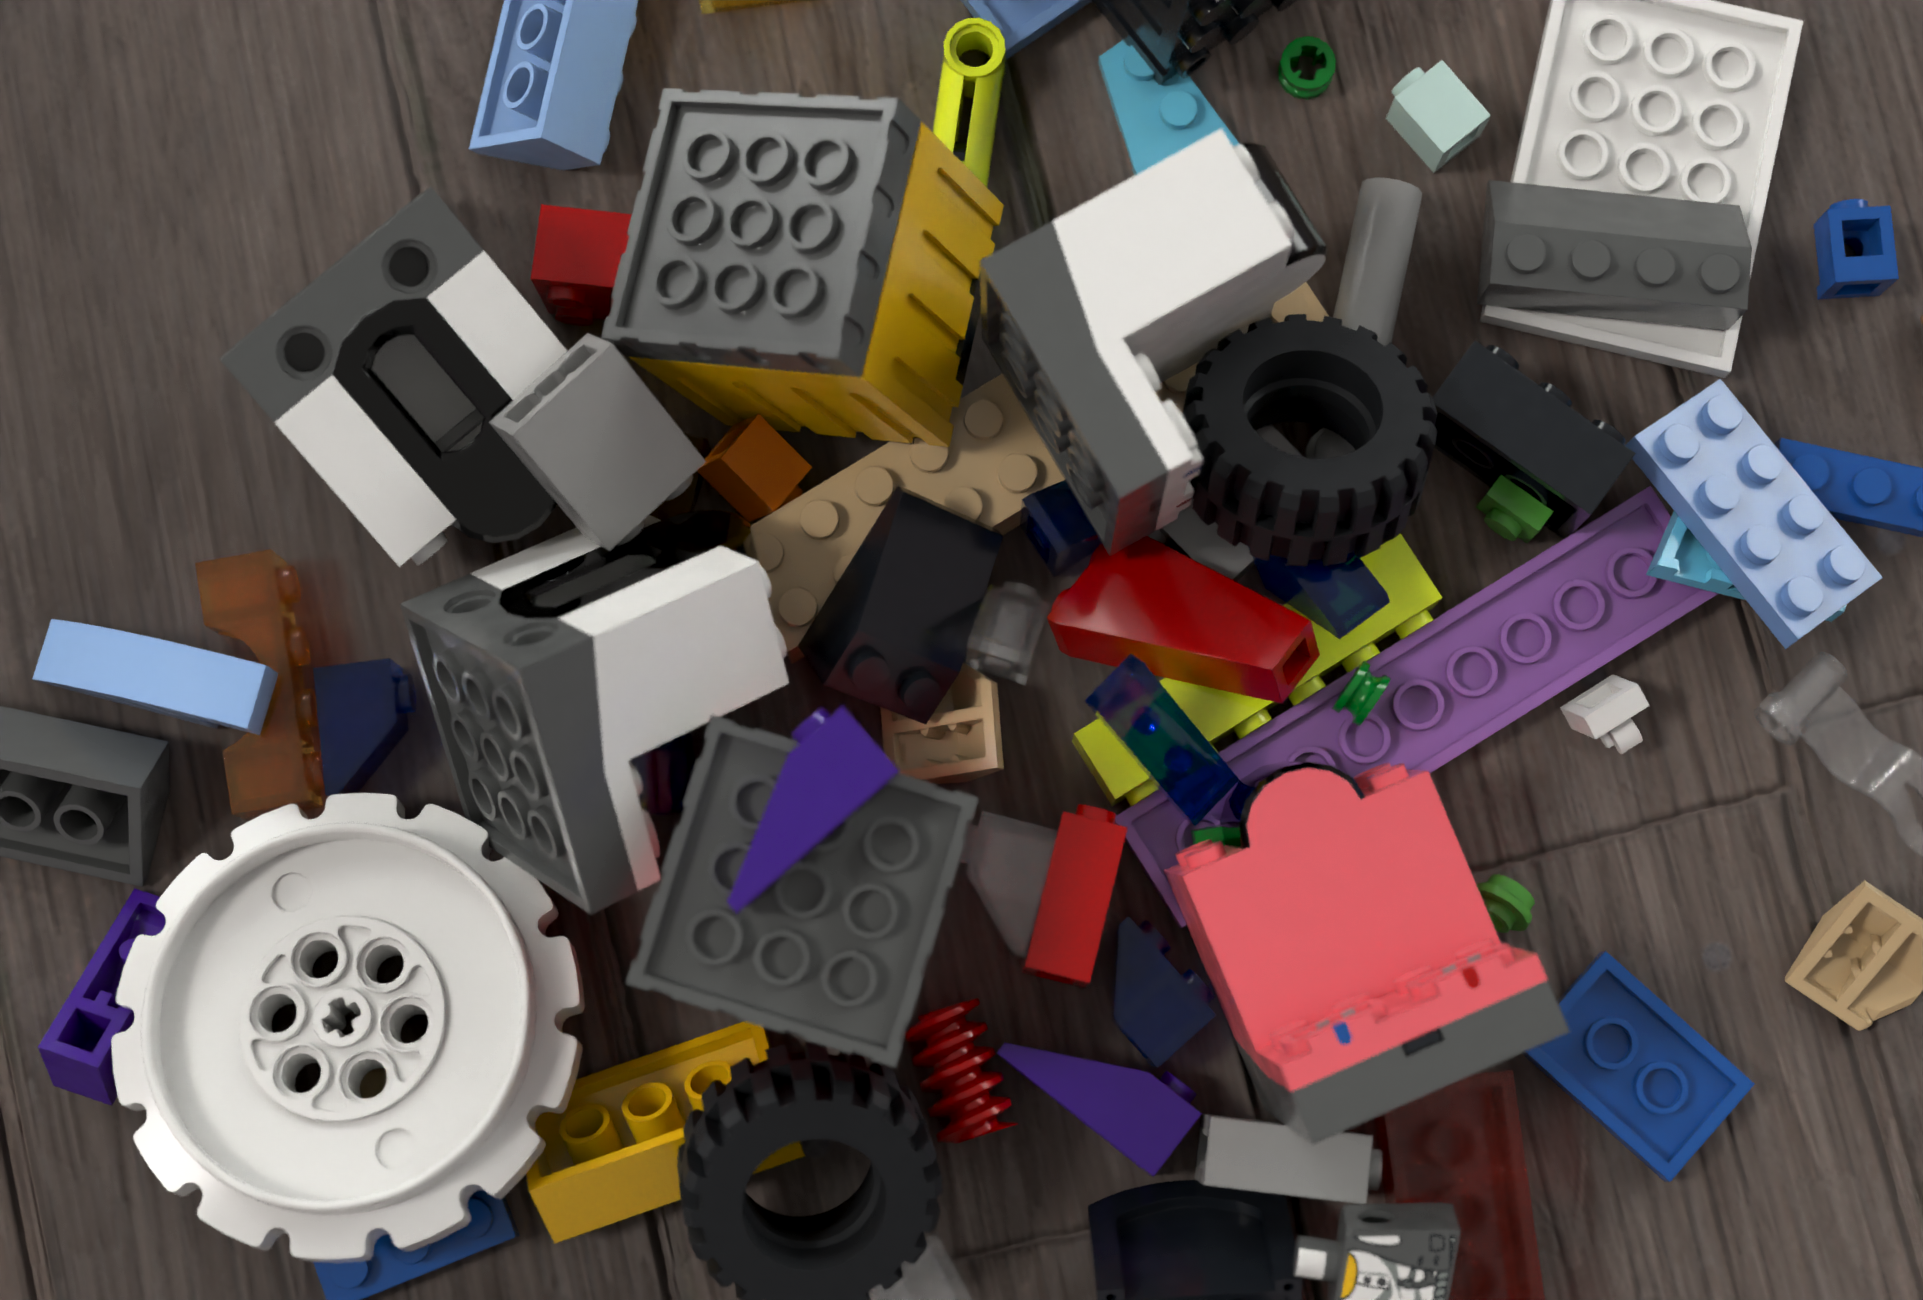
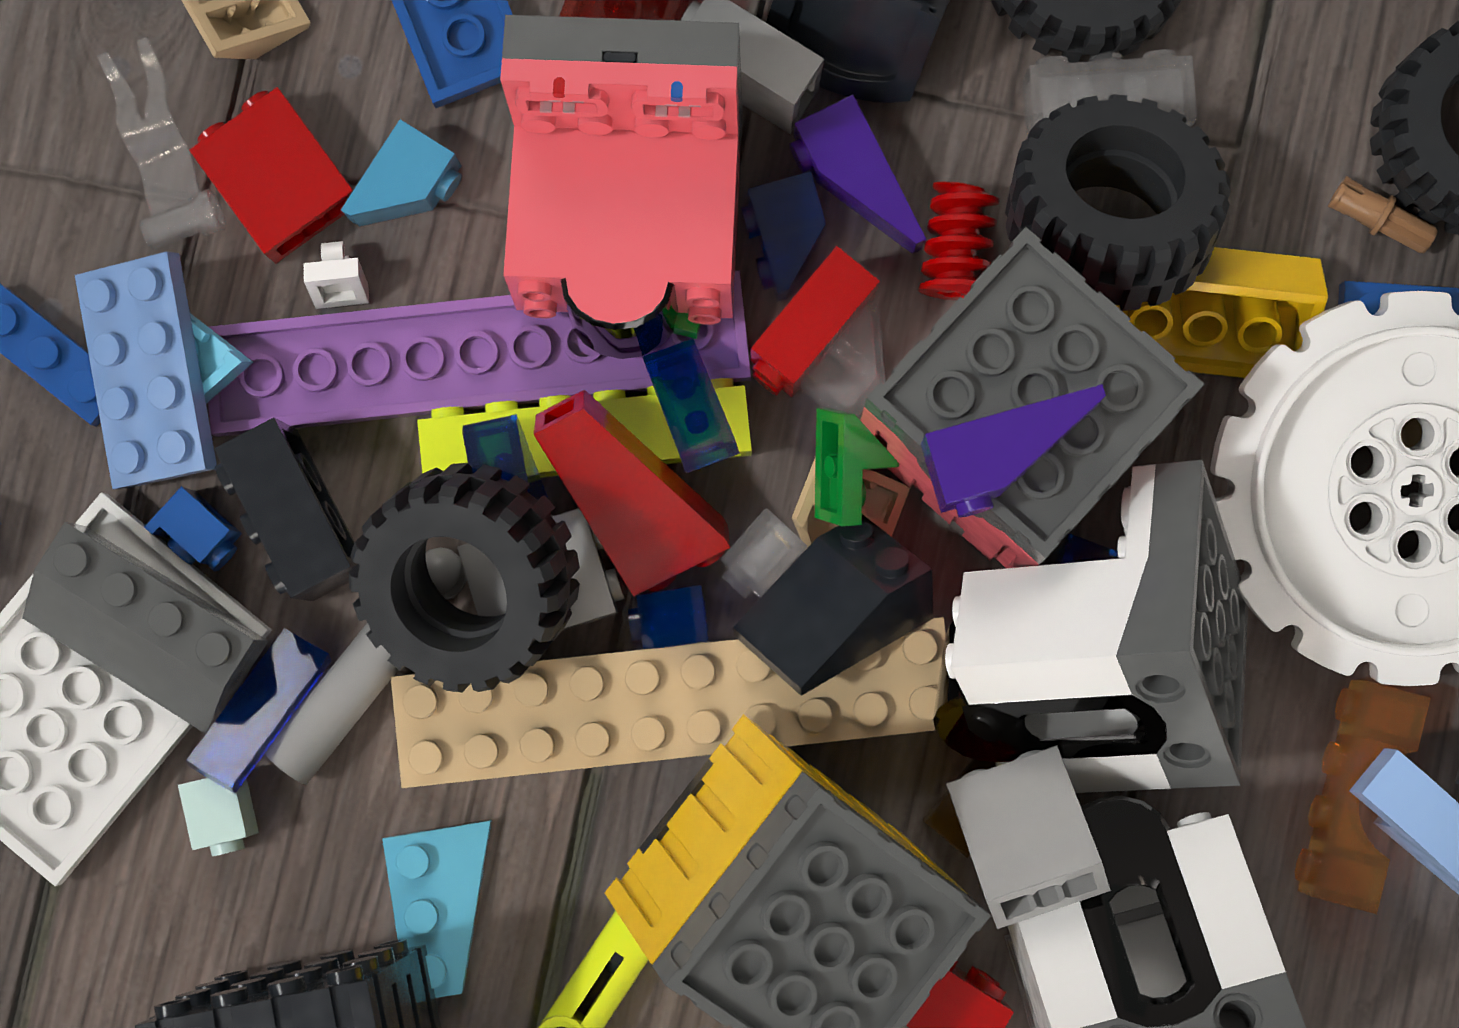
camera: 150 degrees left, 5 degrees up
(360, 719) = (1297, 729): clear blue slope -> none
(755, 468) = (899, 779): orange brick -> none
(972, 754) = (842, 453): none -> green slope
(1130, 296) = (545, 749): piece -> none
(1313, 48) = (308, 918): green bush -> none
(1361, 693) = (517, 375): green bush -> none
(1448, 229) = (259, 711): none -> clear blue tile
(1507, 903) = (489, 174): bright green plate -> none
(1513, 511) = (327, 465): bright green plate -> none
(1593, 856) = (403, 178): none -> dark azure slope
(1612, 381) = (195, 529): none -> blue brick
(1733, 792) = (273, 174): none -> red brick

